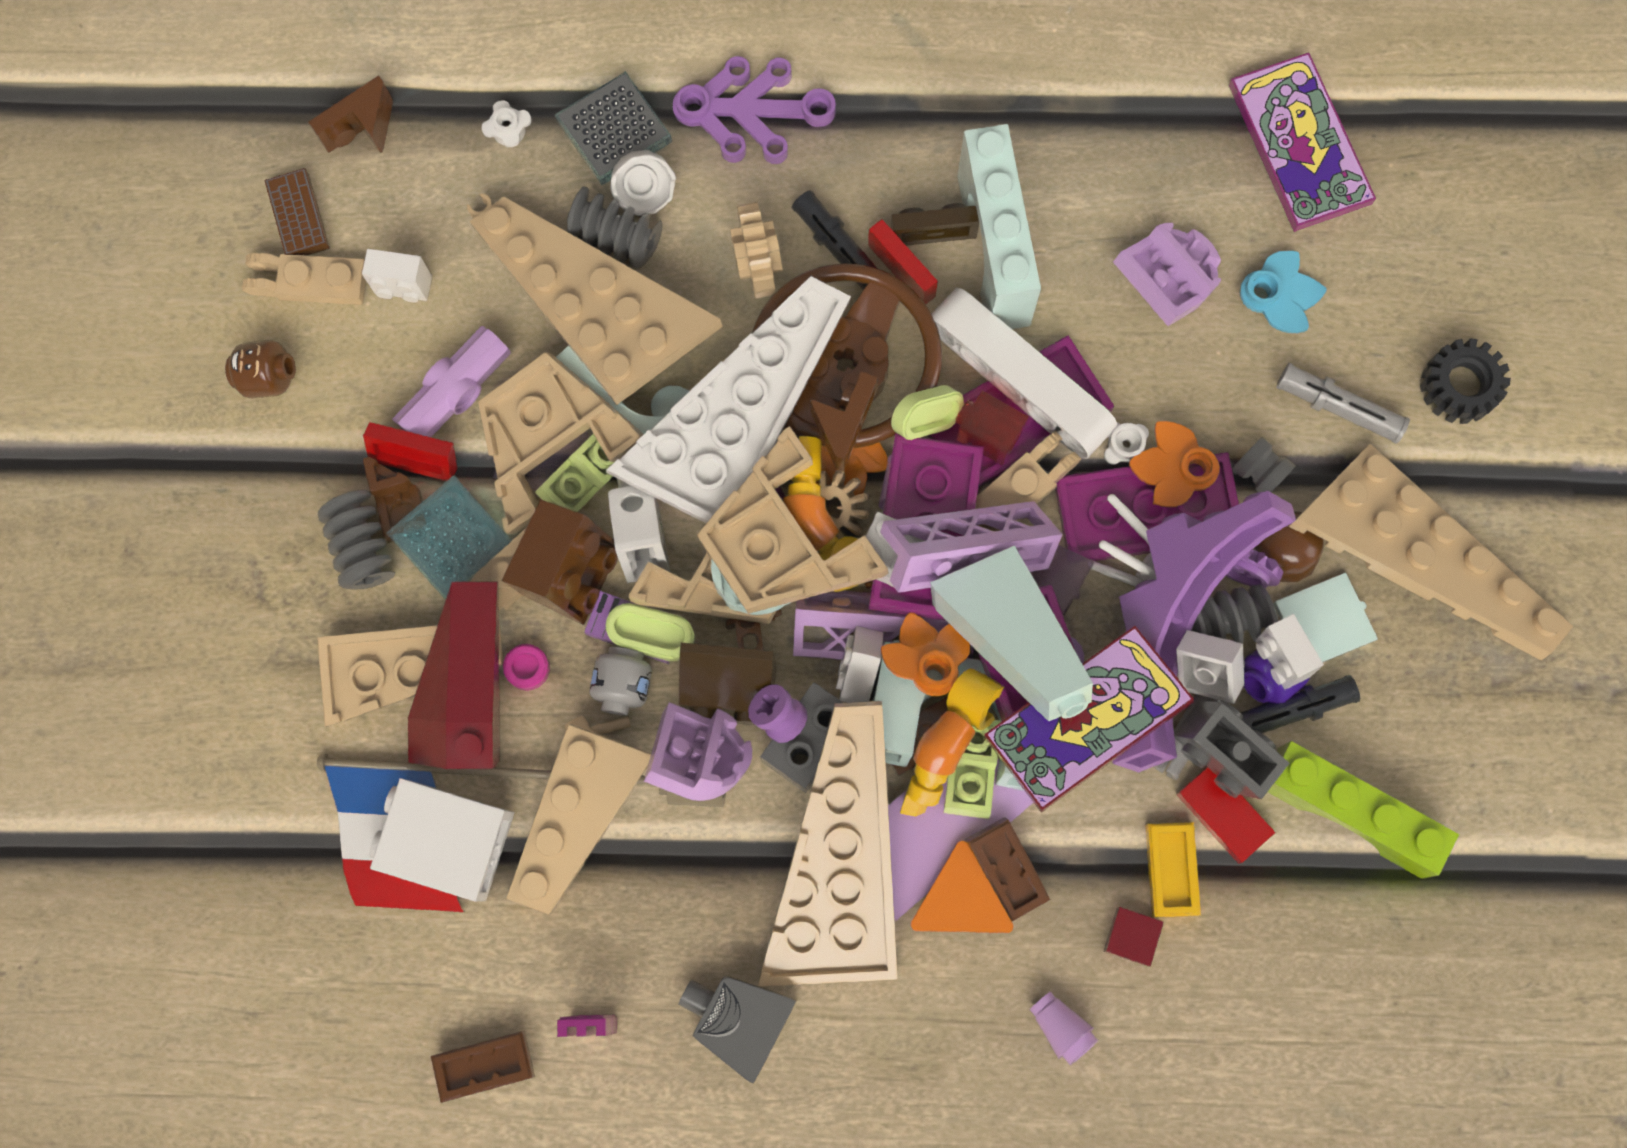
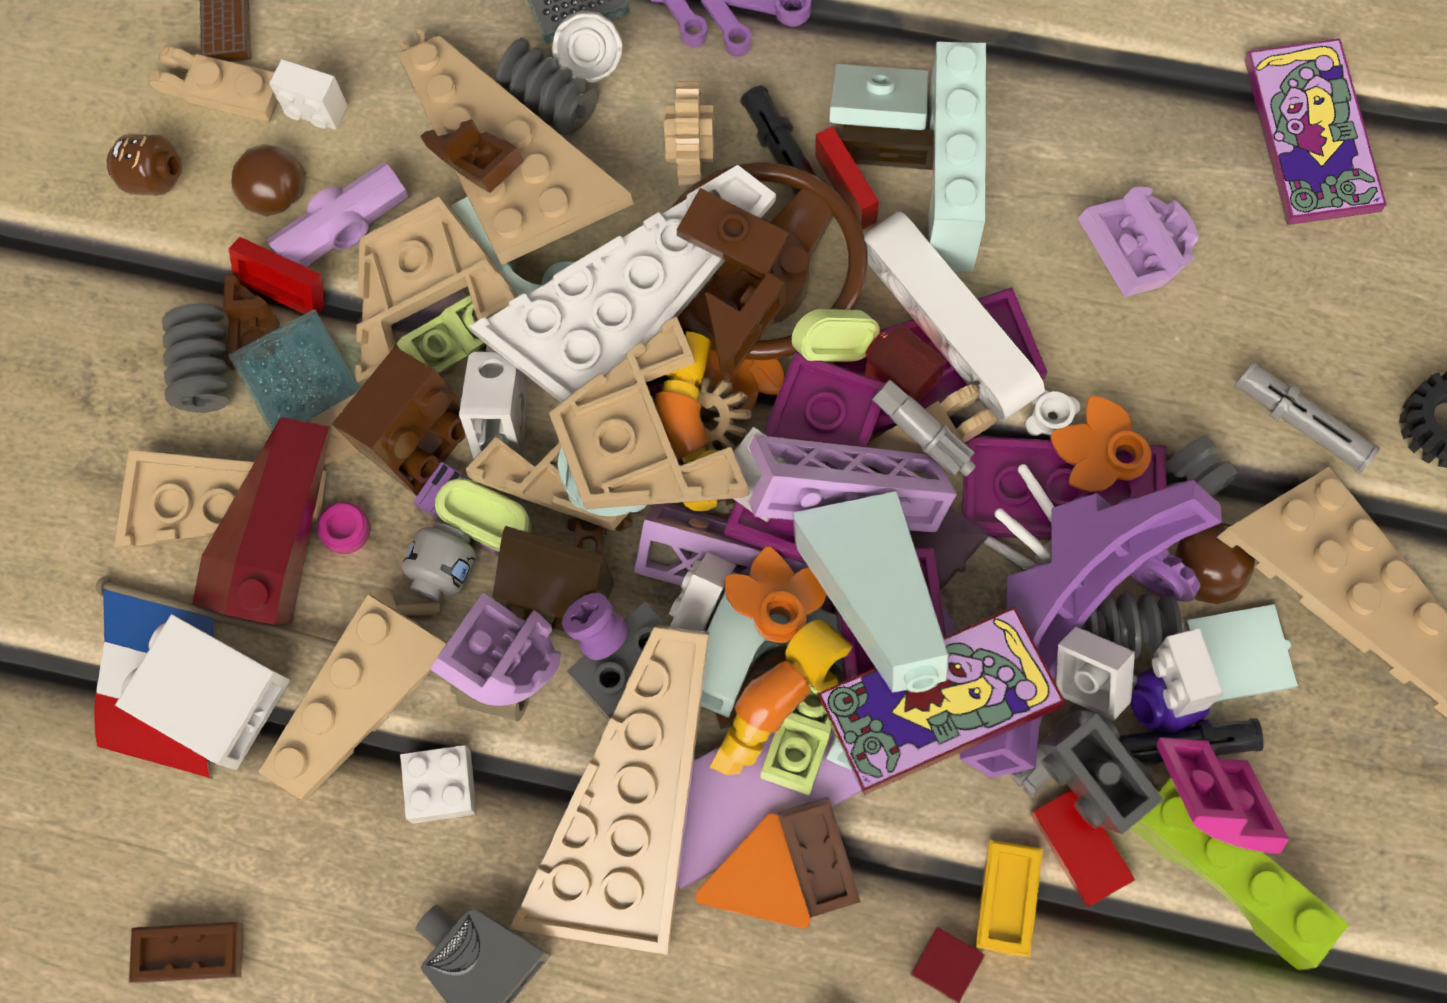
camera: 15 degrees right, 5 degrees down
(377, 361) = (267, 179): none -> reddish brown hair
(571, 309) = (475, 155): none -> reddish brown slope
(587, 1025) = (306, 929): magenta tile -> none
(666, 875) = (438, 784): none -> white piece
(821, 341) = (732, 234): none -> reddish brown plate
(916, 182) = (879, 97): none -> light aqua plate
(1023, 482) = (925, 429): none -> light grey piece
(1287, 292) = (1266, 288): medium azure plate -> none
(1336, 748) = (1222, 796): none -> dark pink slope

